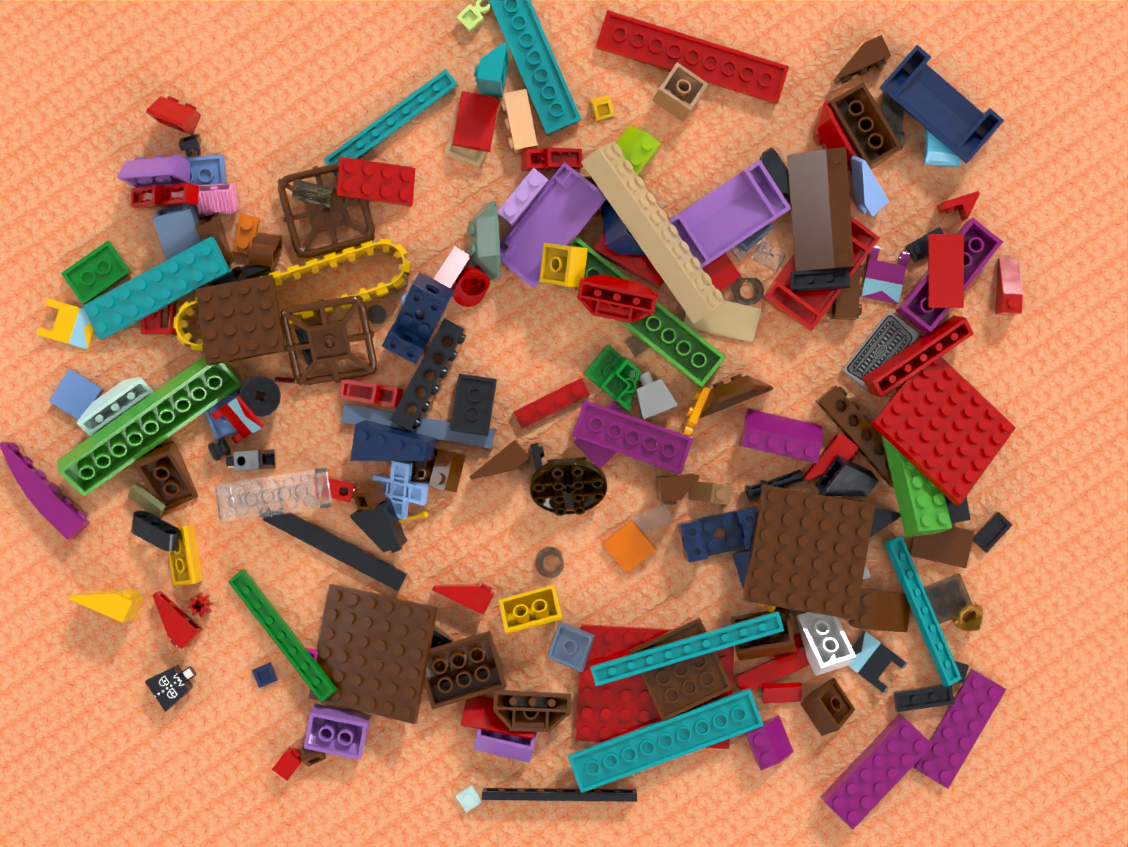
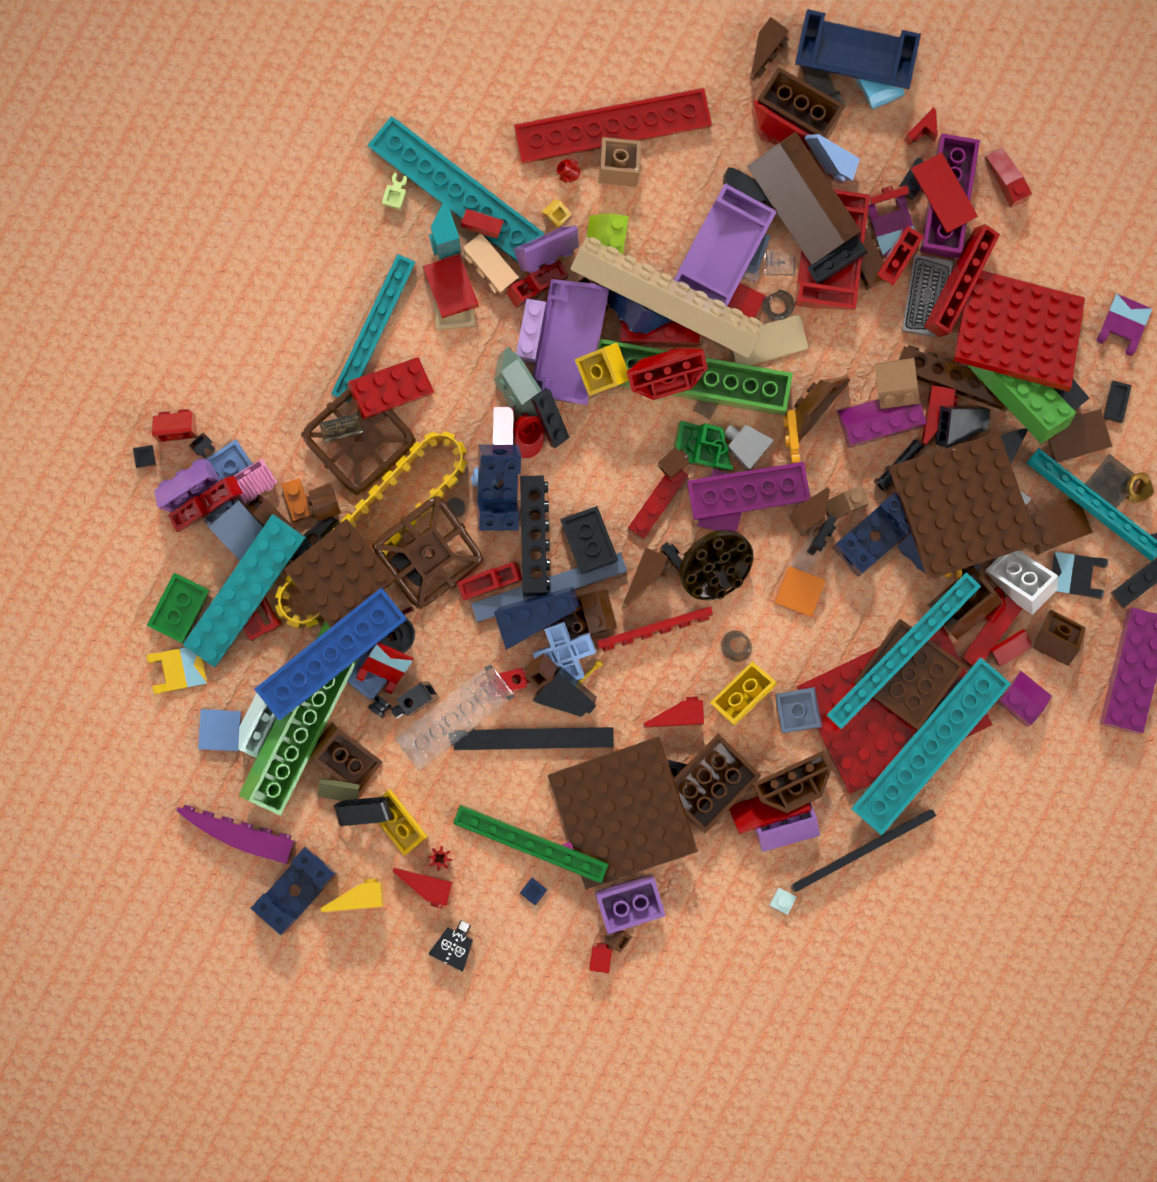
camera: 30 degrees left, 5 degrees down
(46, 571) = (282, 909): none -> dark blue plate
(138, 127) = (144, 456): none -> black tile
(192, 384) = (330, 654): none -> blue plate
(495, 512) = (663, 627): none -> red plate
(496, 282) = (550, 418): none -> black plate
(531, 81) = (482, 223): none -> red tile
(575, 133) = (547, 248): none -> medium lavender slope
(581, 378) = (673, 463): none -> reddish brown brick
(632, 75) = (568, 170): none -> red gear
(667, 514) = (819, 541): none -> black plate
(811, 414) = (897, 383): none -> medium nougat slope
(876, 304) = (899, 255): none -> red slope
(896, 245) = (888, 193): none -> red plate
(1040, 466) = (1126, 320): none -> magenta flag

